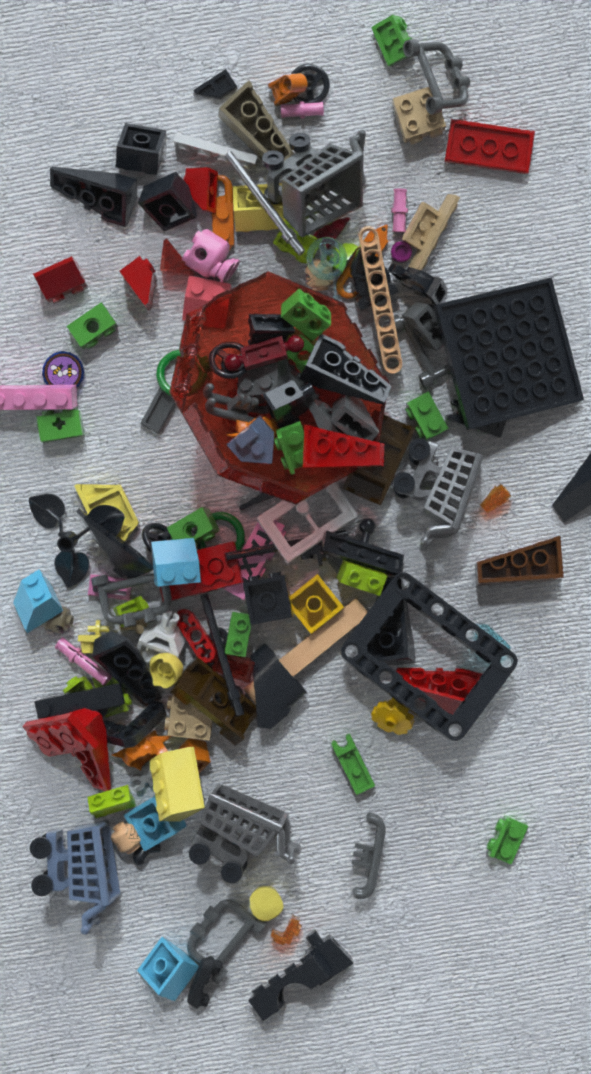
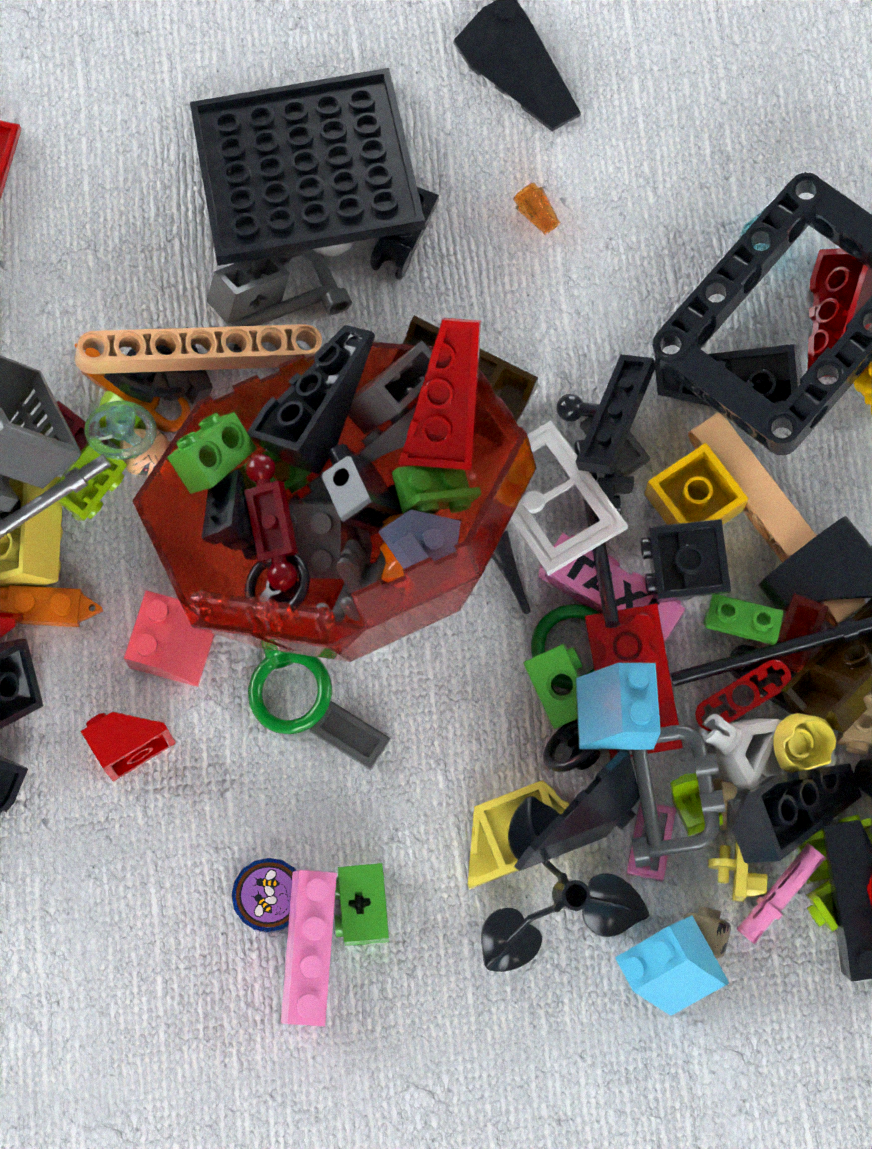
camera: 85 degrees left, 15 degrees down
(60, 280) = (107, 882): red slope -> none
(80, 326) = (178, 819): bright green brick -> none
(172, 261) = (96, 690): clear red slope -> none
(214, 263) = (108, 615): bright pink piece -> none
(361, 577) = (655, 417): lime brick -> none
(399, 210) = (54, 322): bright pink pin -> none
(401, 252) = (122, 320): magenta tile -> none
(406, 486) = (510, 296): flat silver piece -> none
(420, 282) = (177, 290): black piece -> none
(426, 416) = (395, 305): bright green bracket -> none
(427, 227) = (91, 280): tan bracket -> none
(524, 565) = (645, 160): reddish brown wedge -> none

